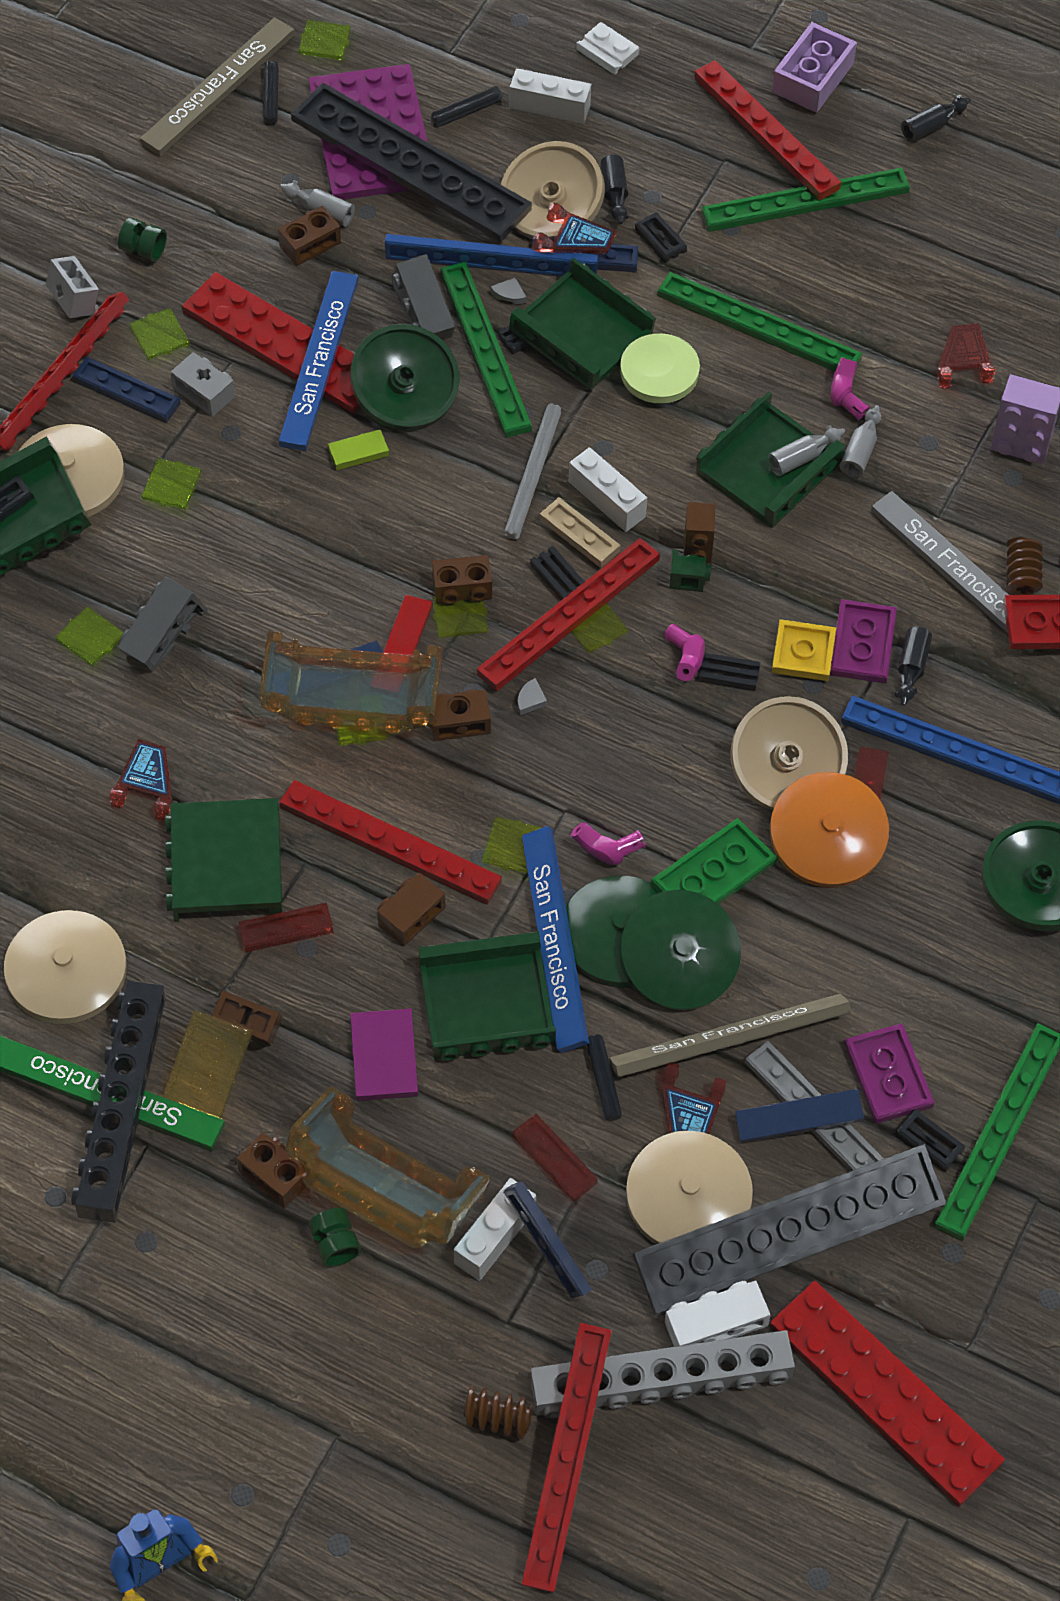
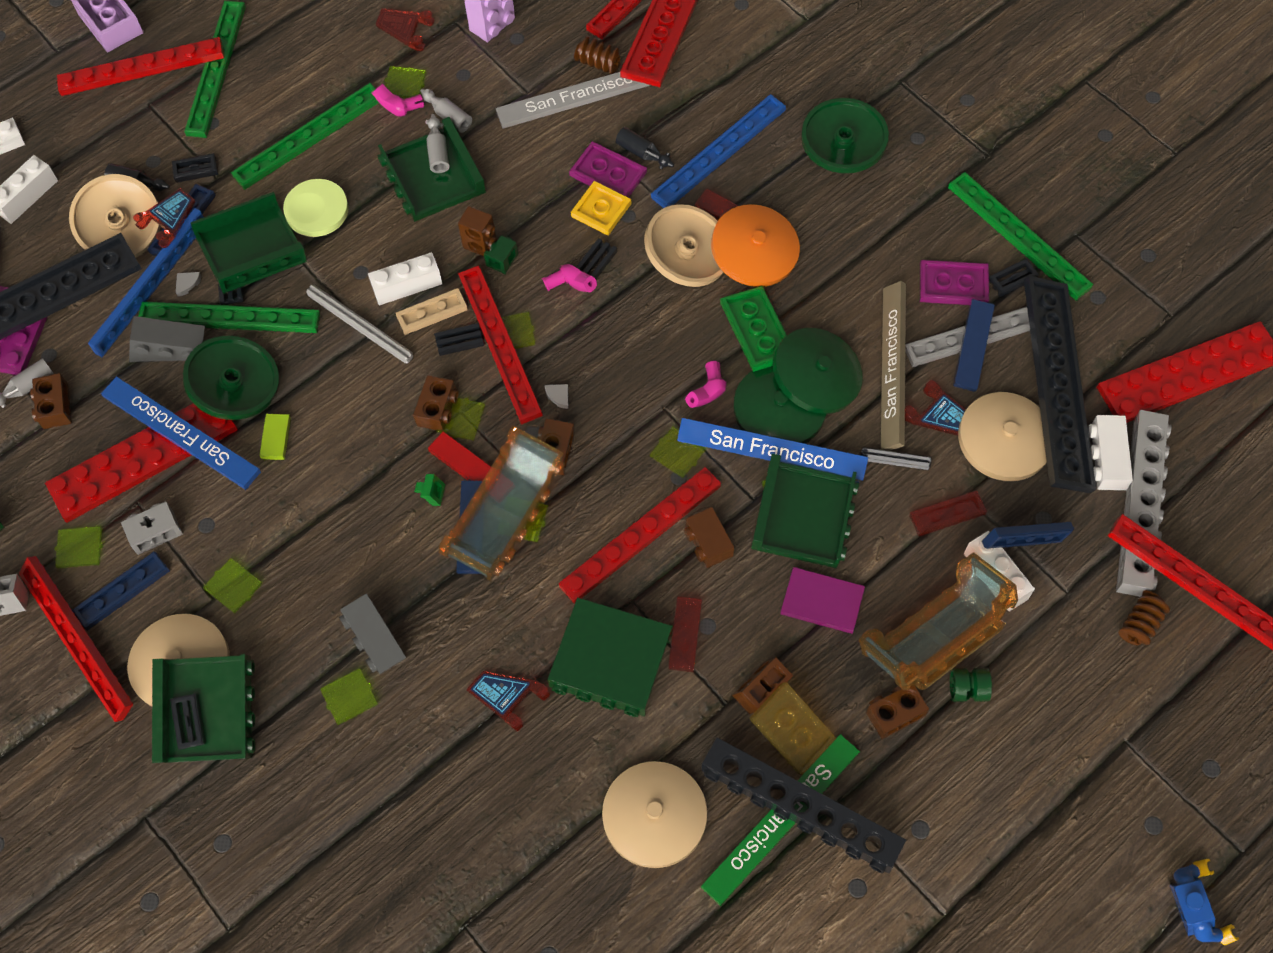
camera: 65 degrees left, 5 degrees up
(354, 617) = (431, 489): none -> green tile
(884, 387) = (405, 81): none -> clear neon green piece

